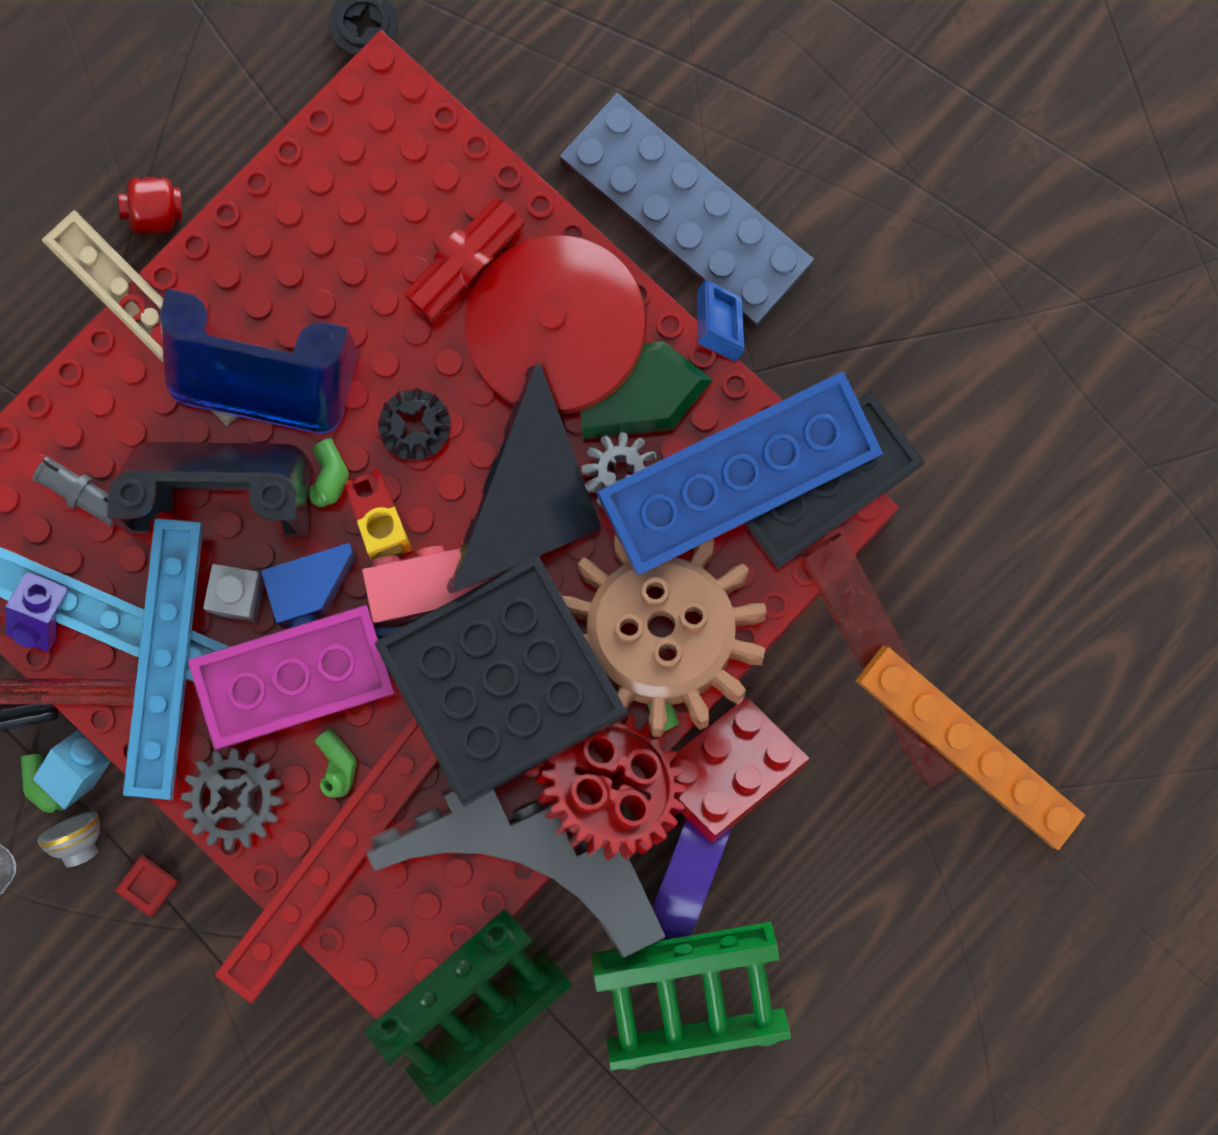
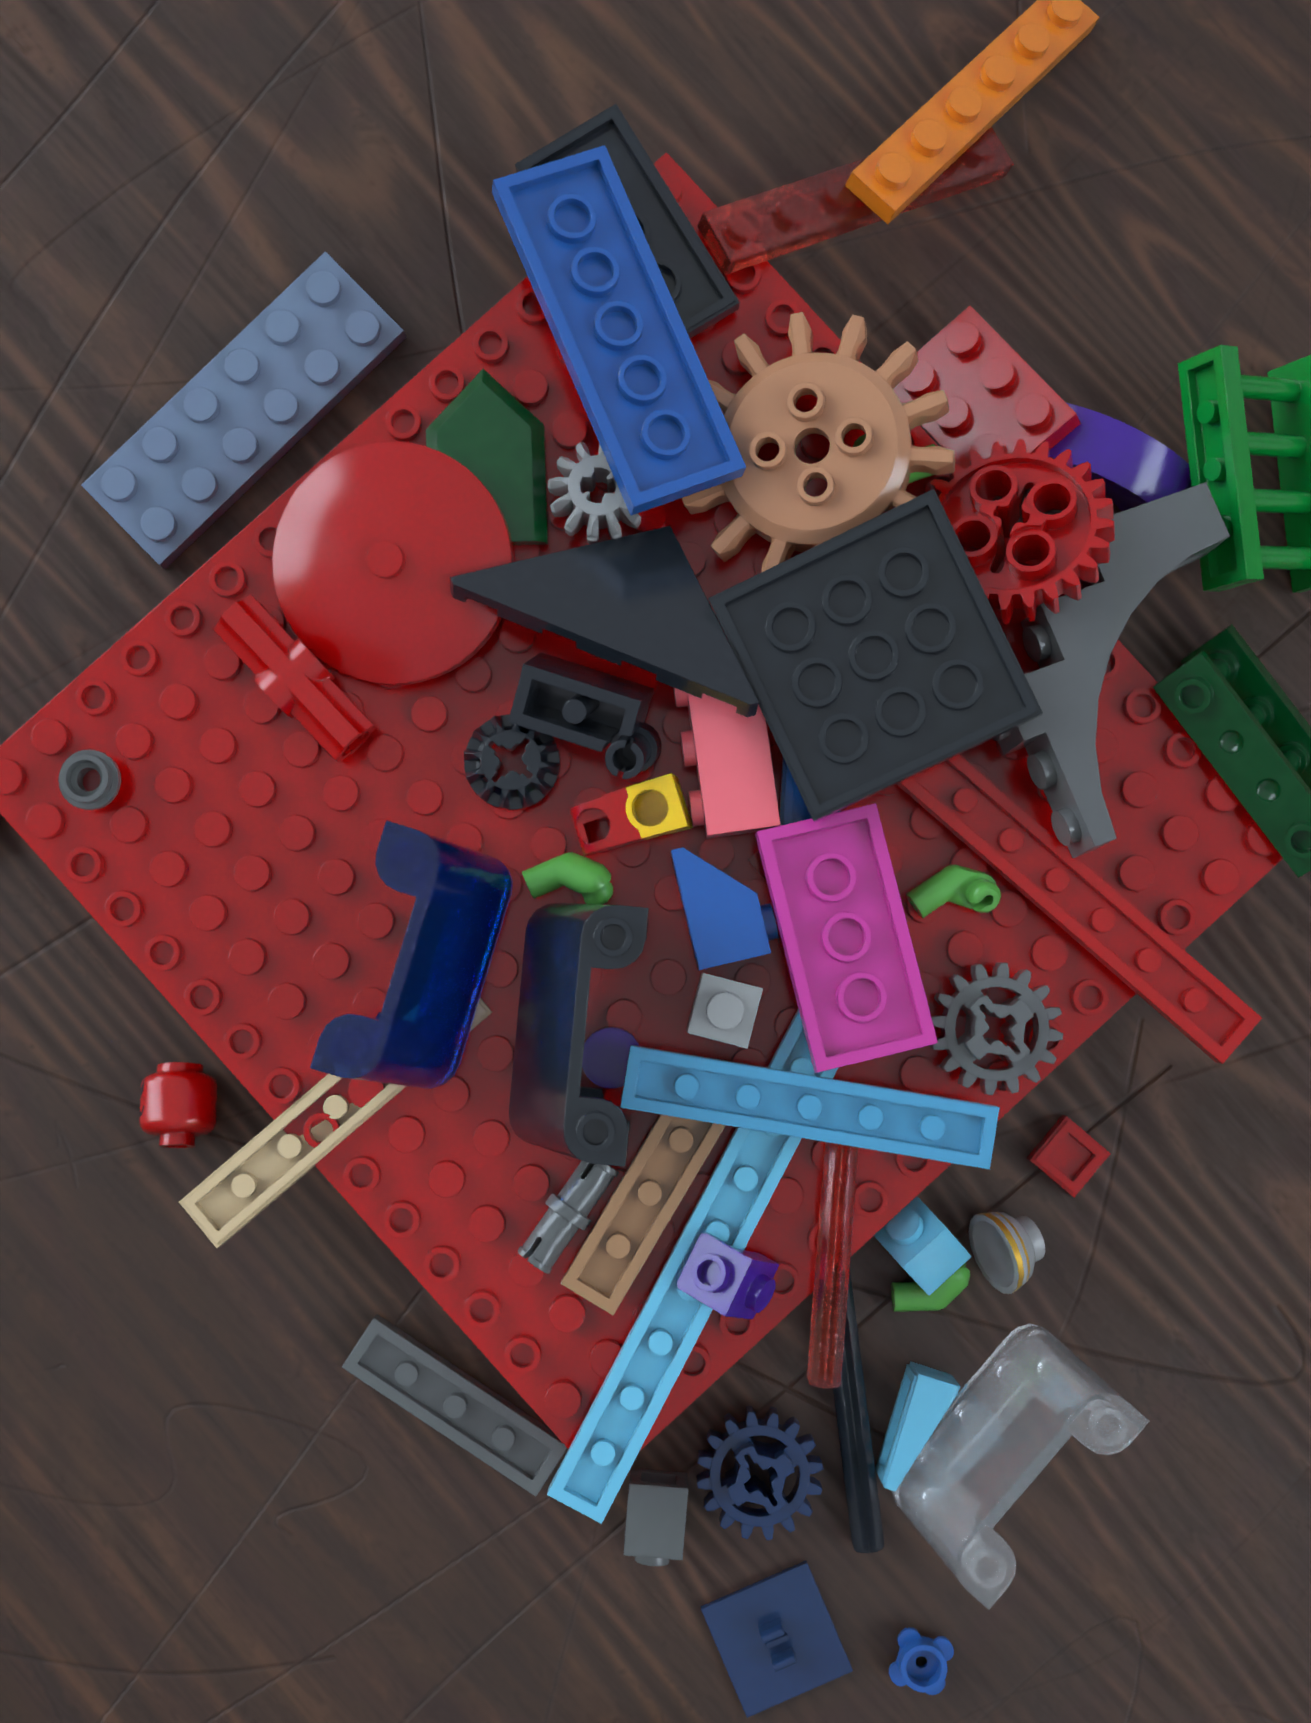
camera: 90 degrees left, 5 degrees up
(81, 543) = (640, 1209): none -> medium nougat plate
(197, 508) = (607, 1056): none -> dark purple tile
(377, 105) = (72, 776): none -> dark grey plate
(452, 475) = (588, 711): none -> black hinge
(720, 320) = (401, 362): blue tile -> none

